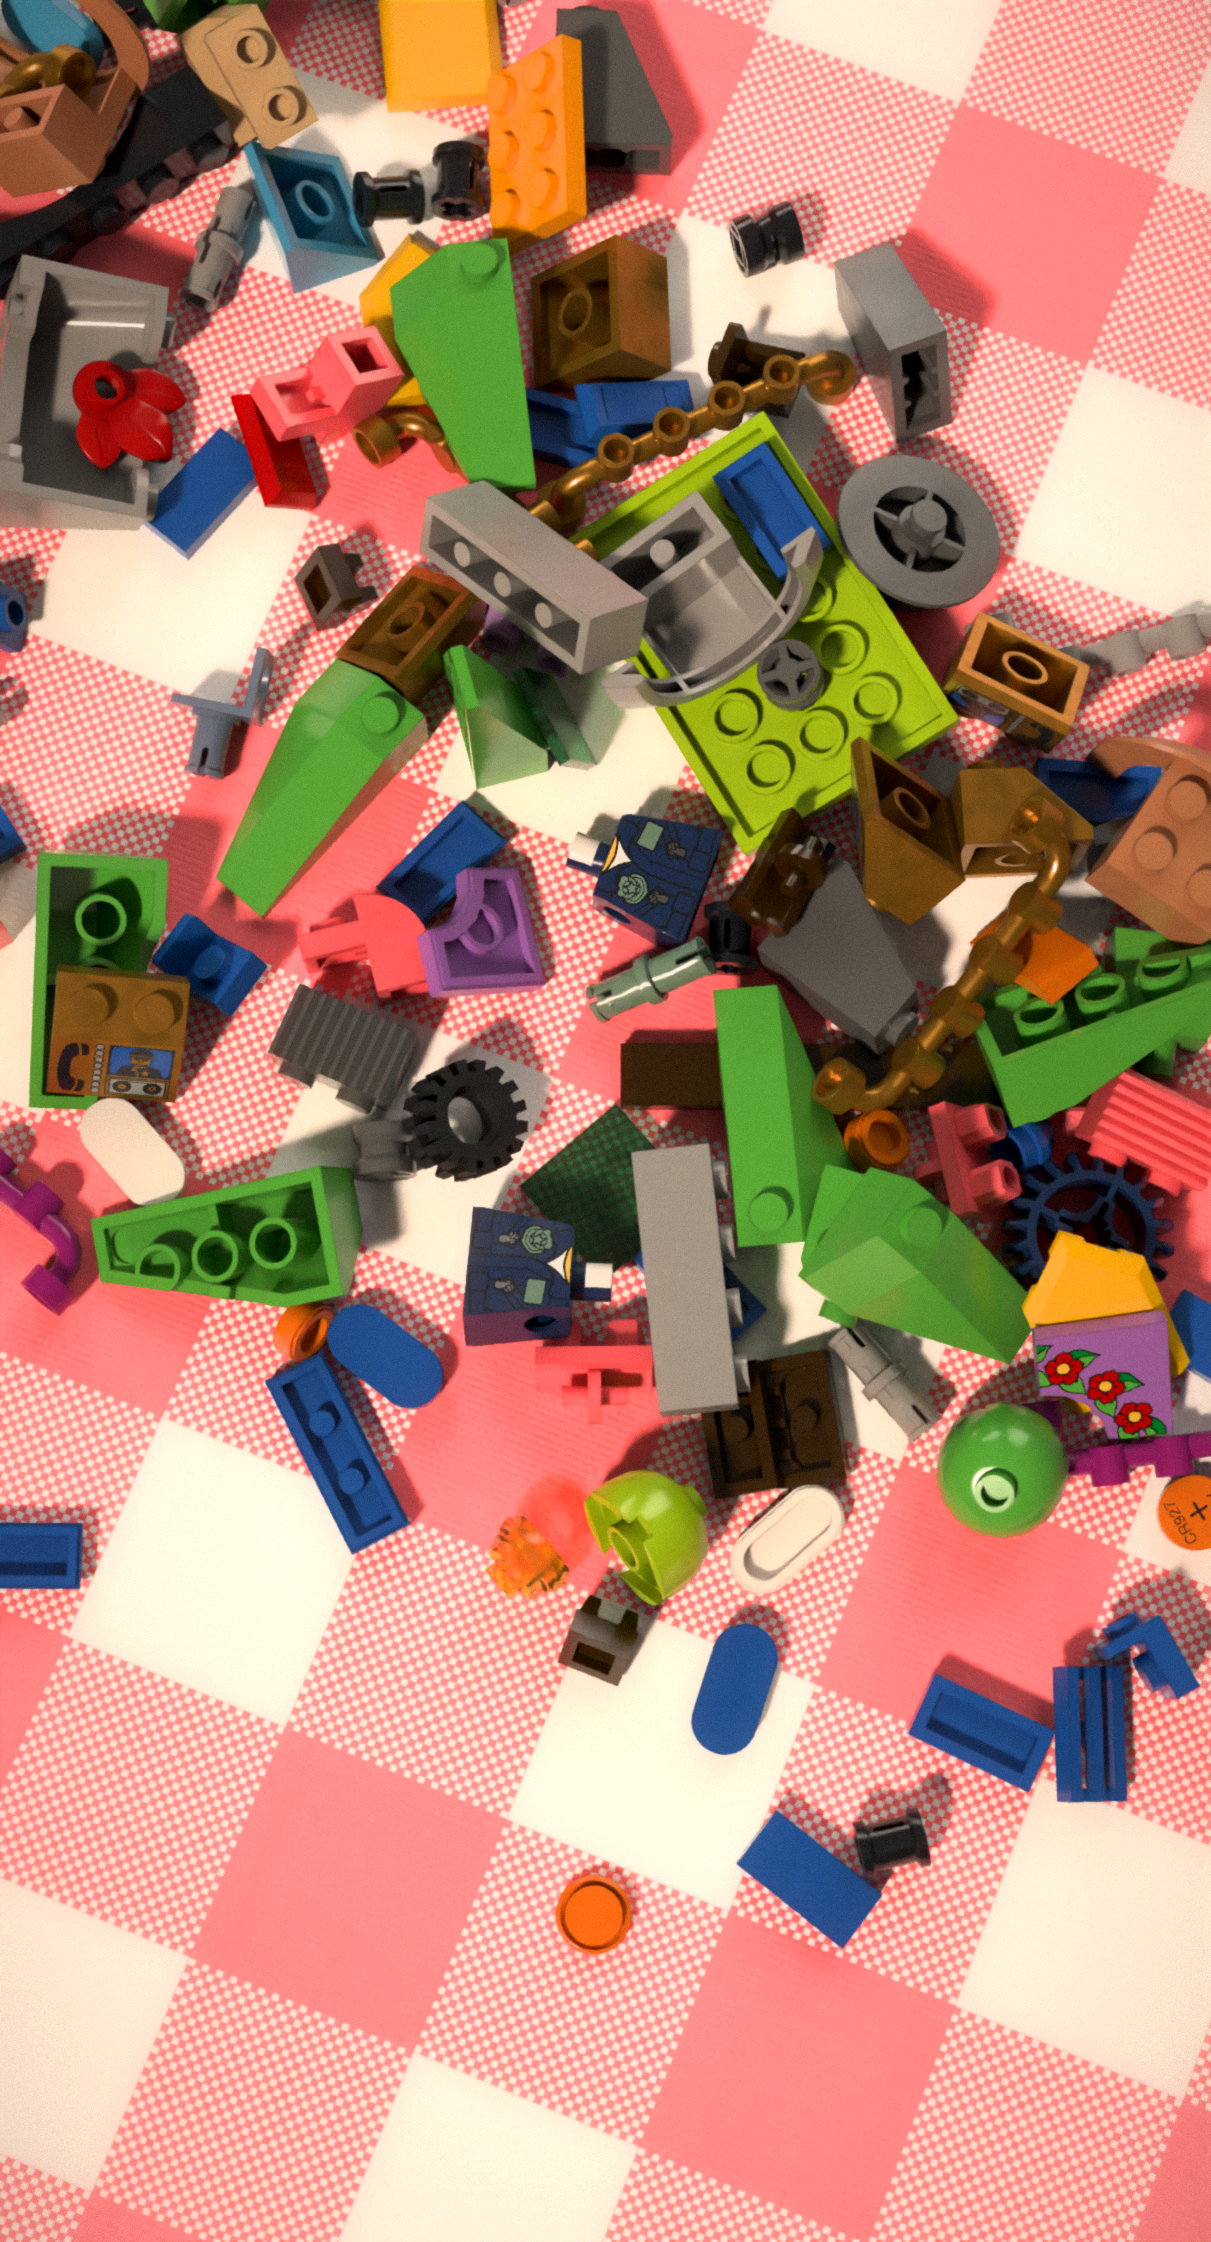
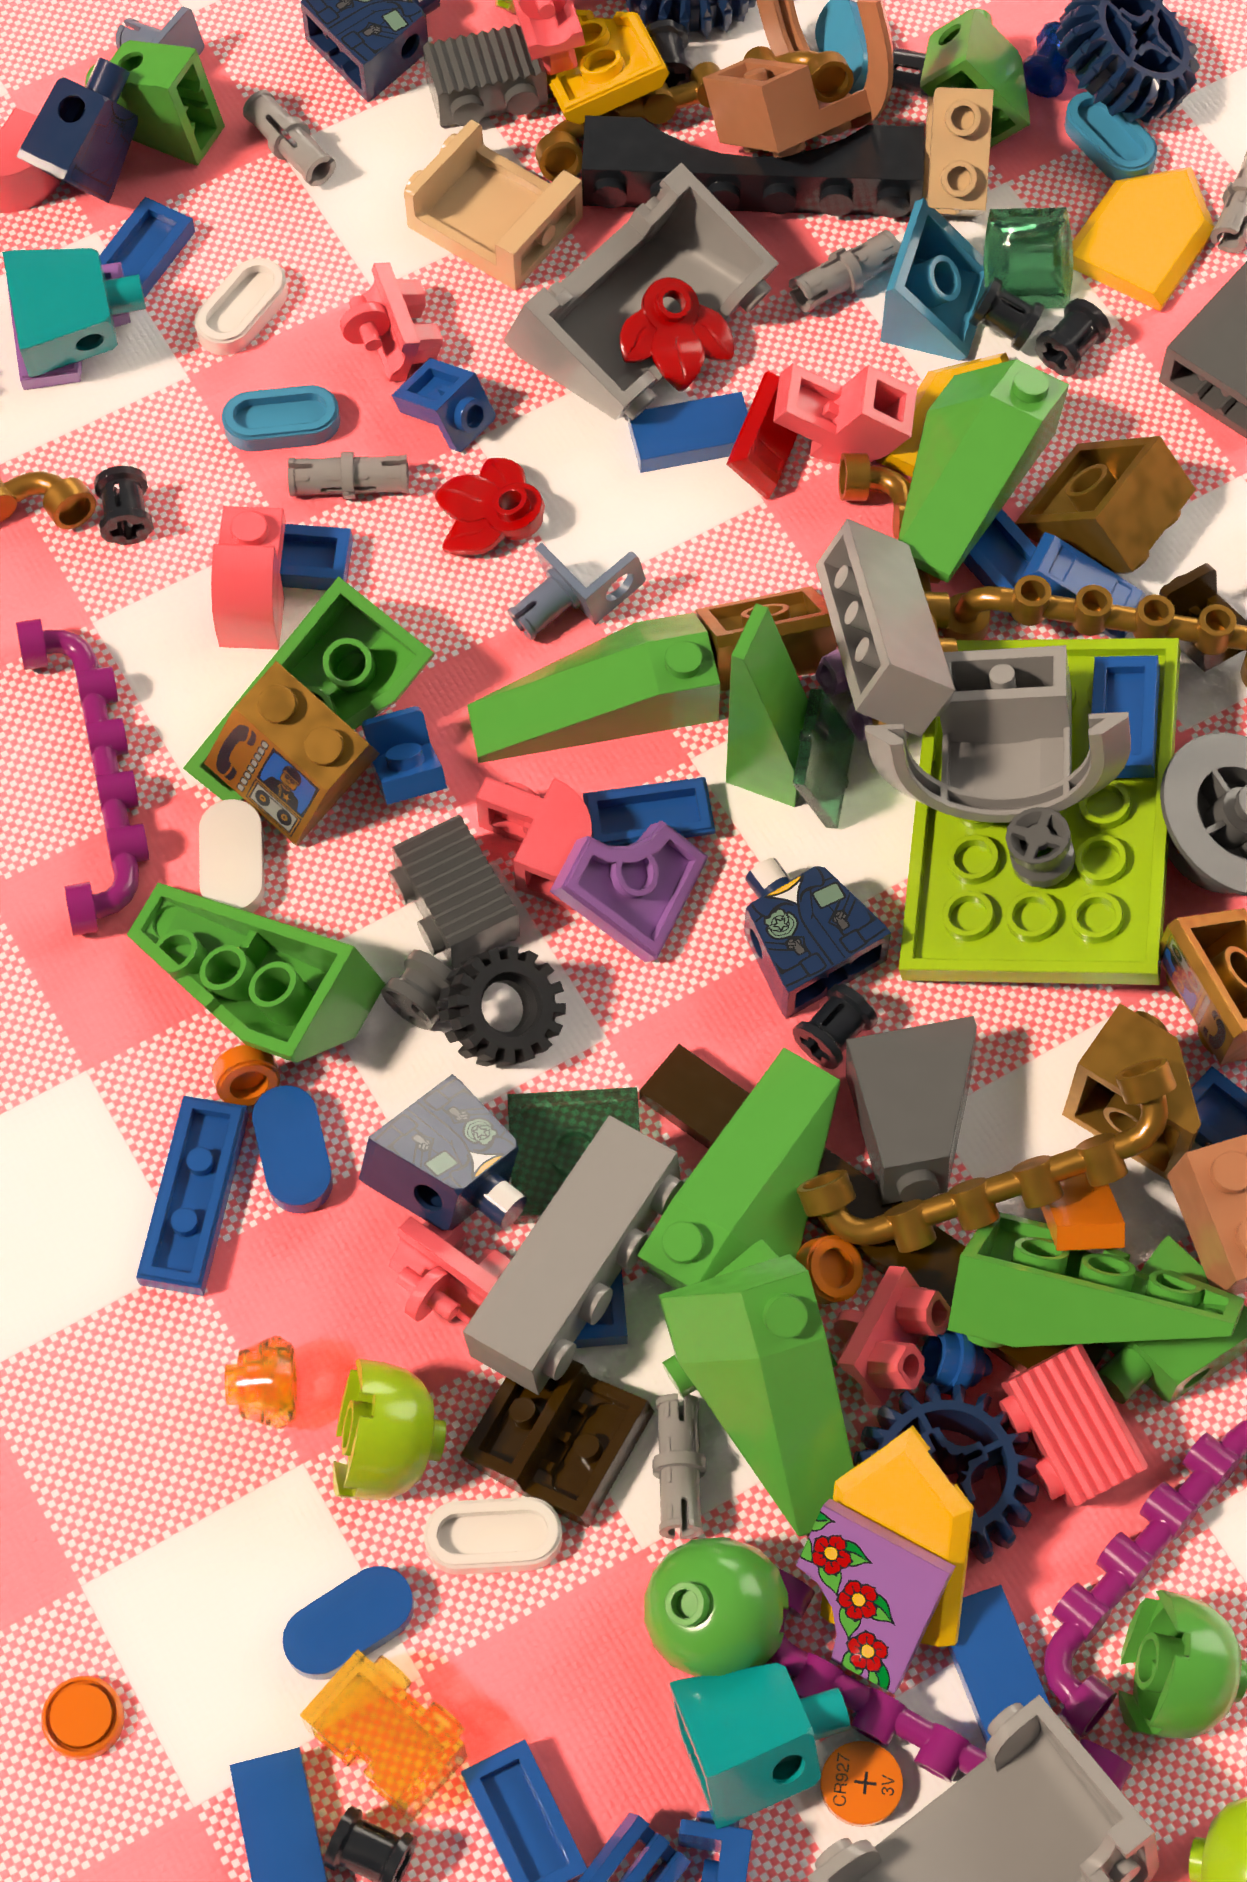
camera: 40 degrees right, 15 degrees down
(81, 686) = (490, 507): none -> red plate
(330, 586) = (729, 554): dark brown tile -> none
(365, 126) = (1030, 254): none -> clear green piece
(537, 145) = (1150, 343): light orange plate -> none
(598, 1644) = (267, 1496): dark brown tile -> none
(650, 979) = (741, 1007): sand green pin -> none
(782, 875) = (911, 993): dark brown hips -> none
(819, 1747) = (374, 1718): none -> clear yellow brick
(901, 836) = (1031, 1025): pearl gold slope -> none
(1105, 1546) = (753, 1737): none -> teal torso

